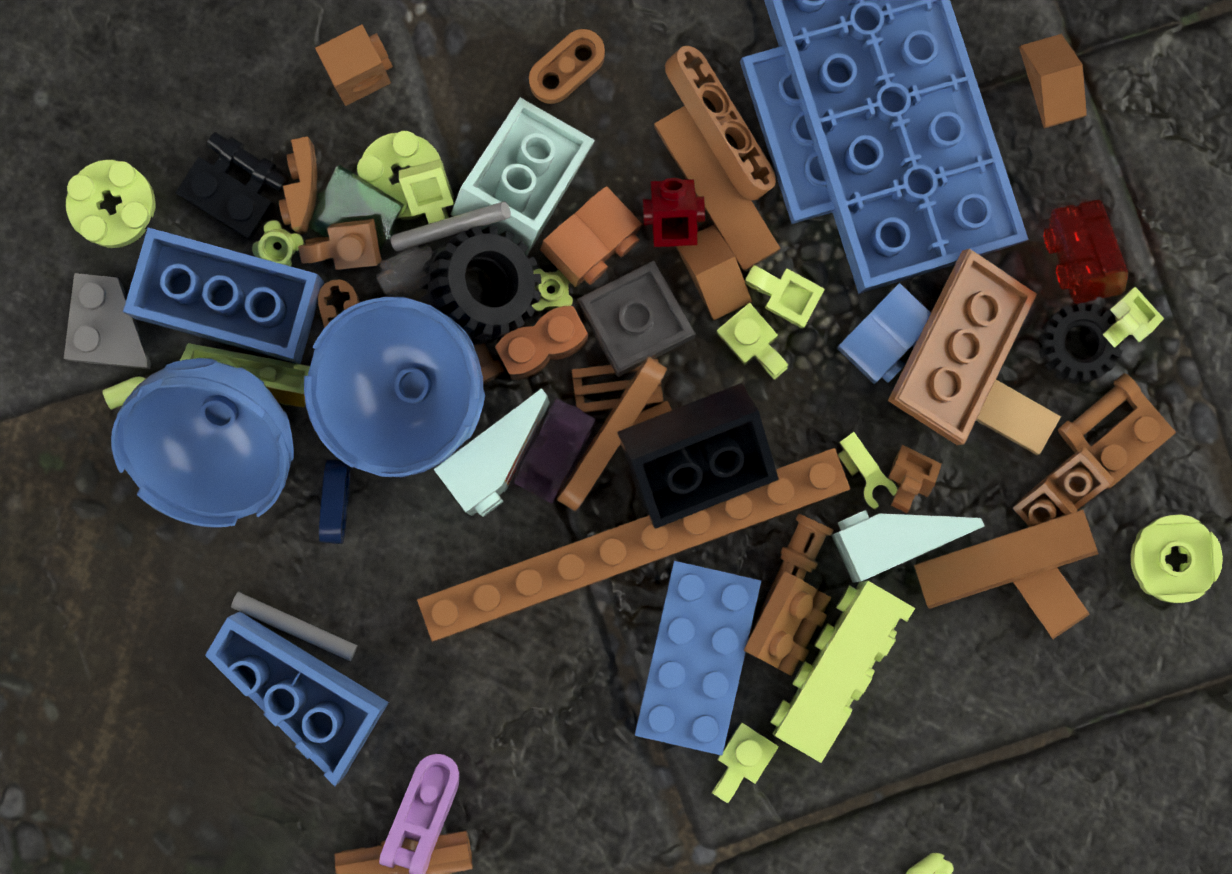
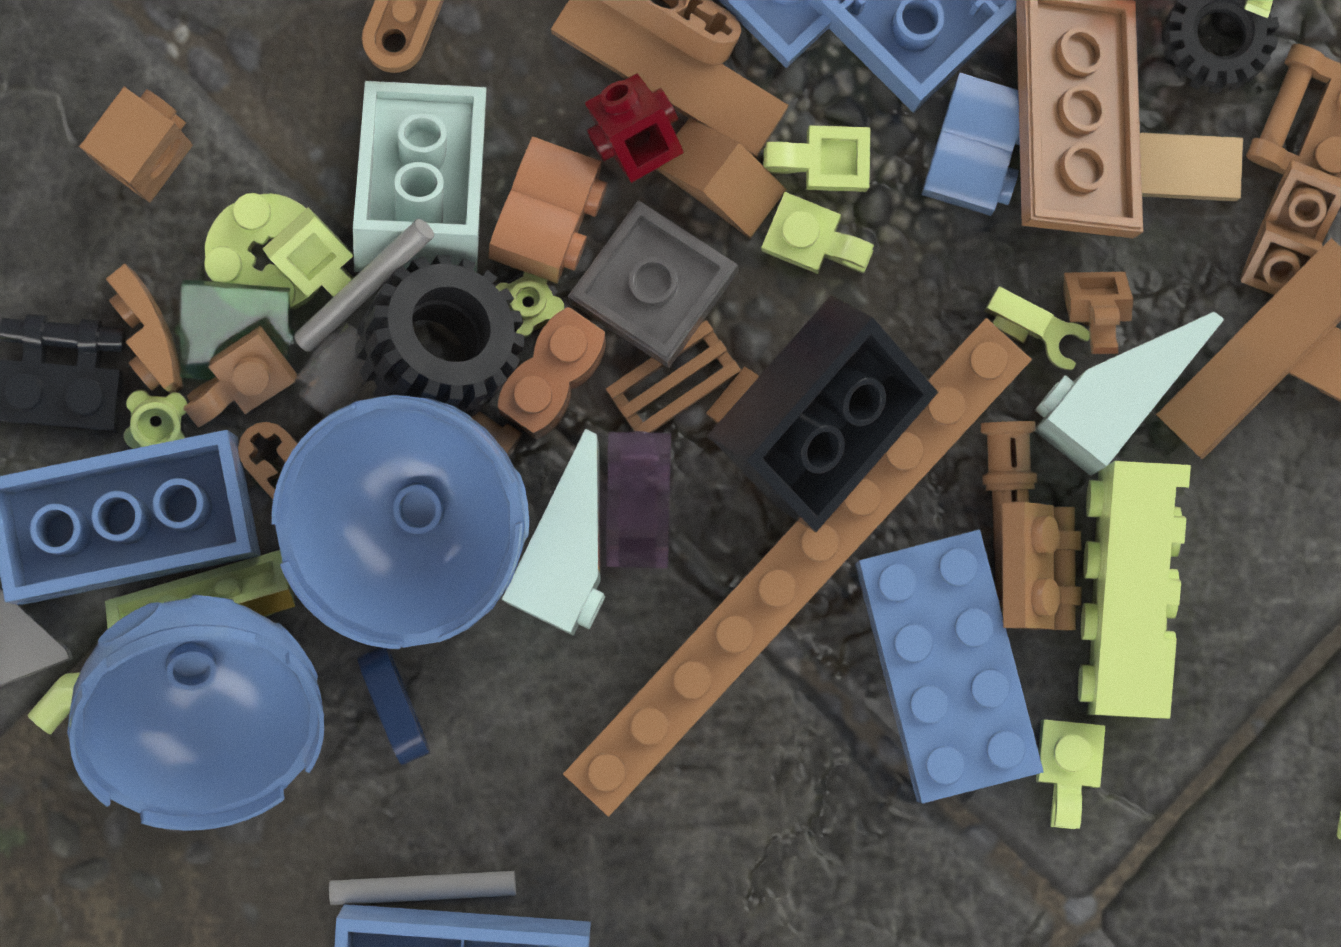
camera: 30 degrees left, 0 degrees up
(607, 438) = (696, 448): medium nougat beam -> none

